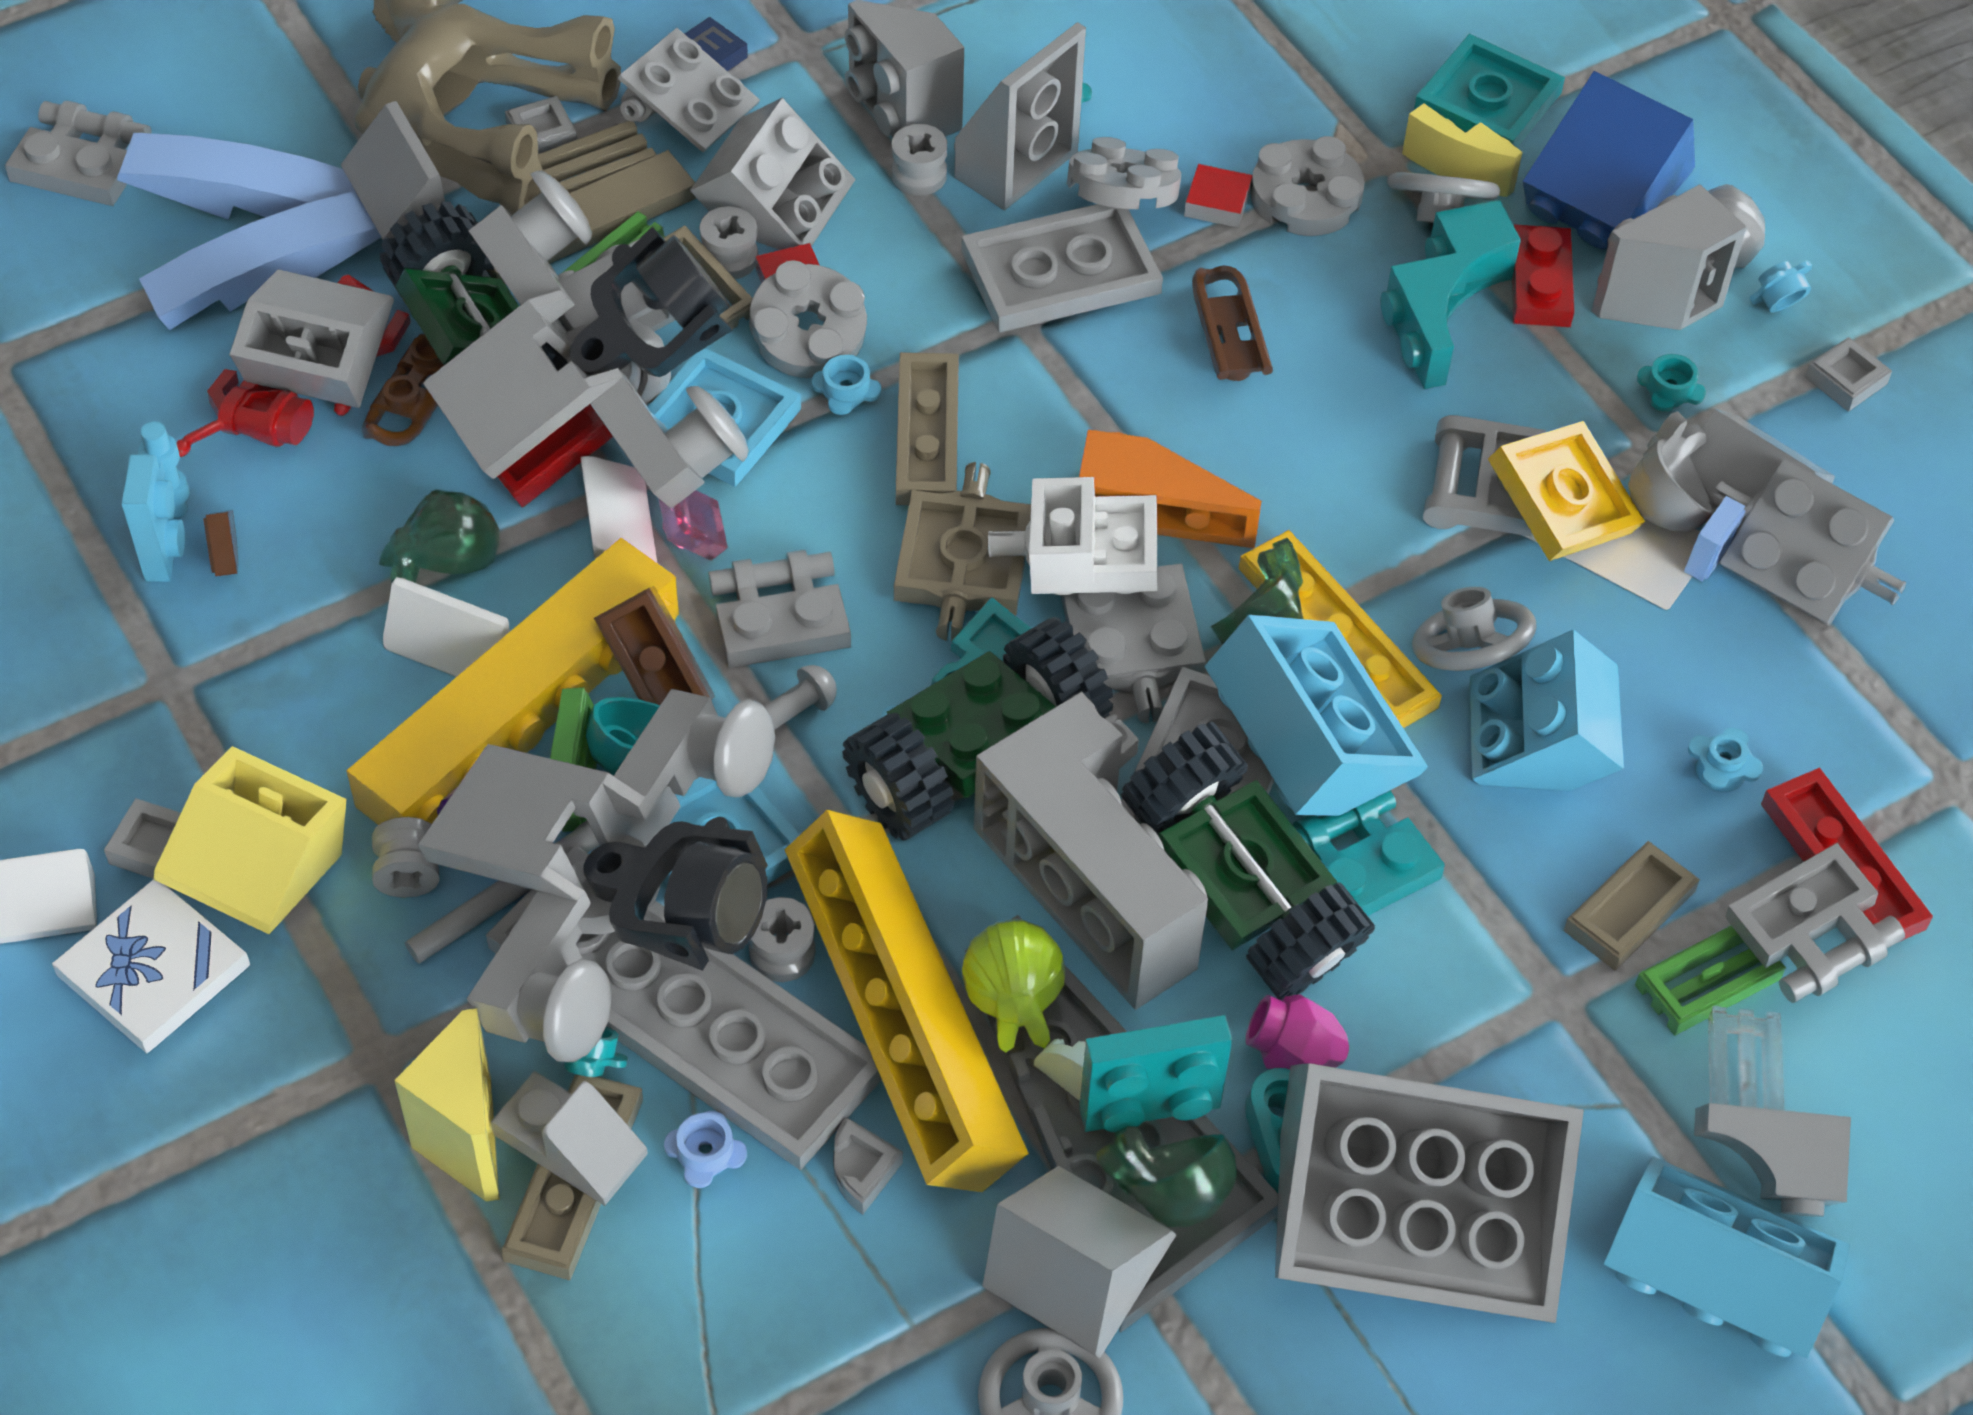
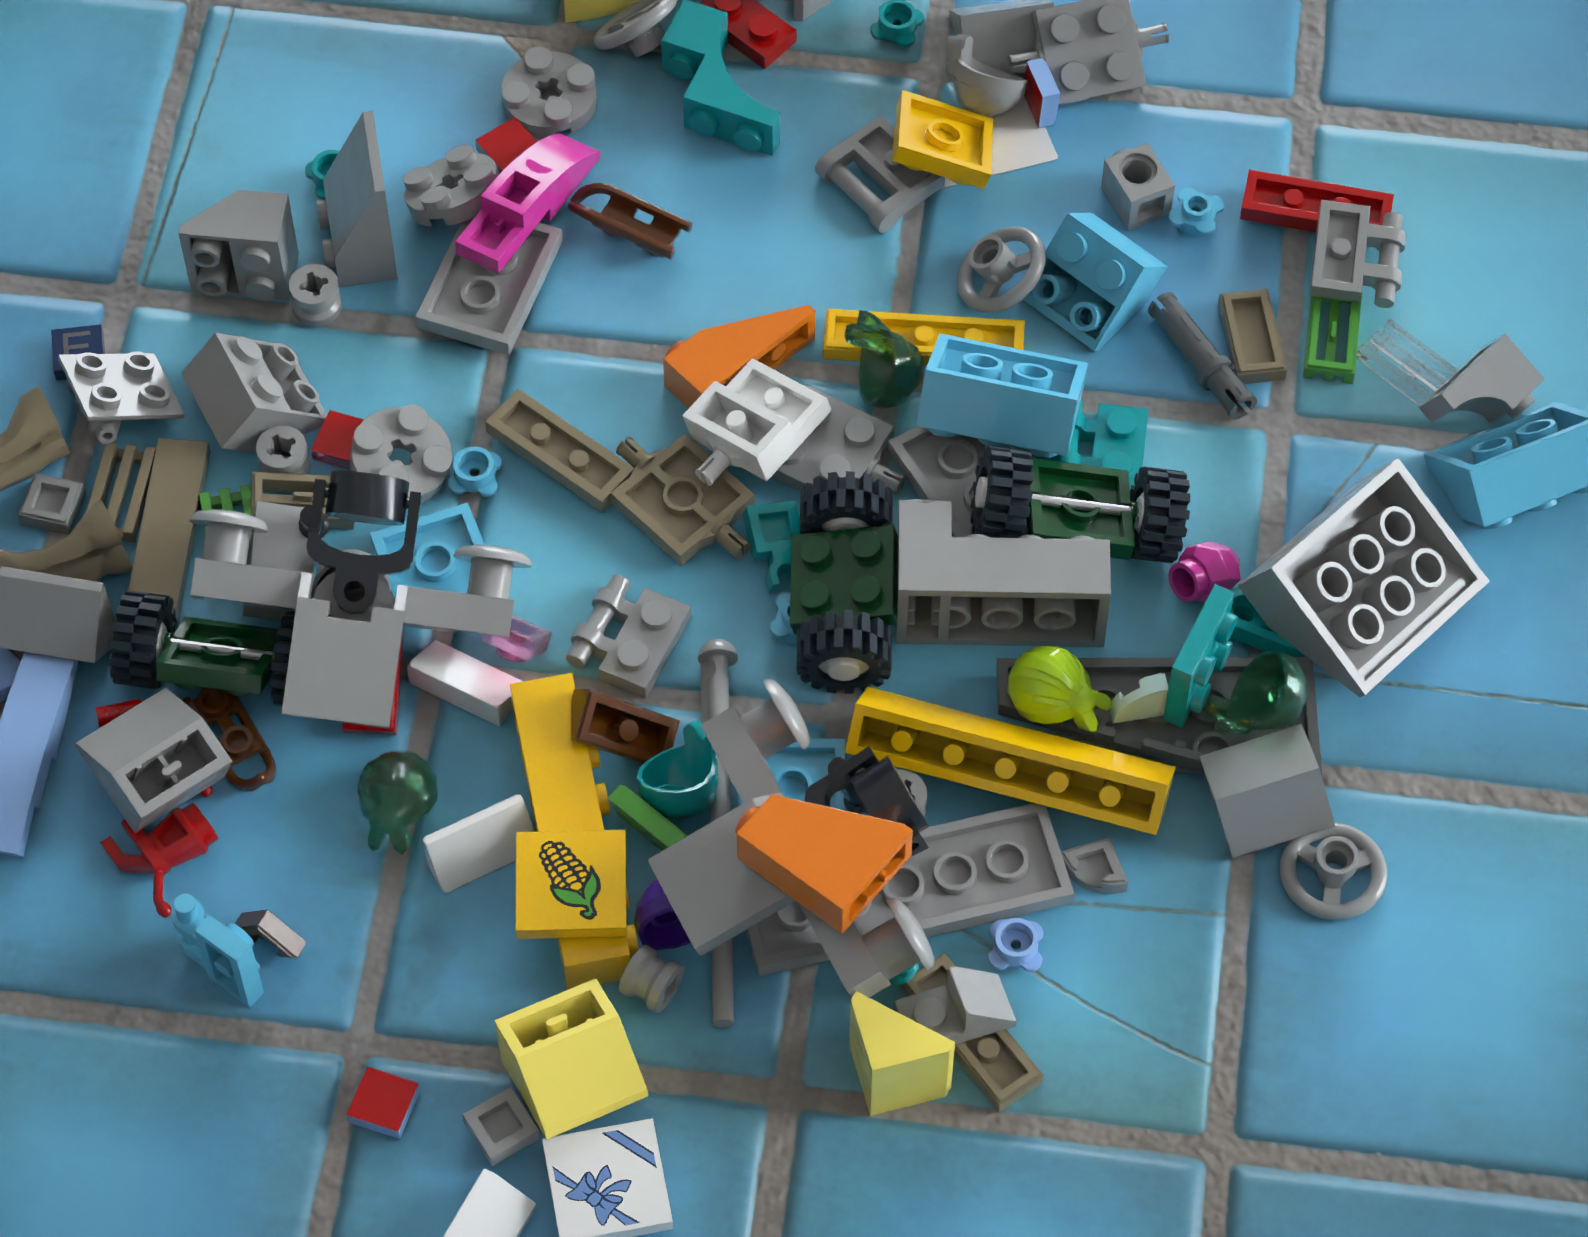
camera: 50 degrees left, 5 degrees up
(114, 737) = (383, 1102): none -> red tile
(433, 715) = (571, 884): none -> yellow tile
(573, 866) = (822, 855): none -> orange slope
(1174, 219) = (521, 196): none -> dark pink slope
(1549, 891) = (1213, 370): none -> dark grey pin
(1695, 686) = (1137, 186): none -> light grey brick

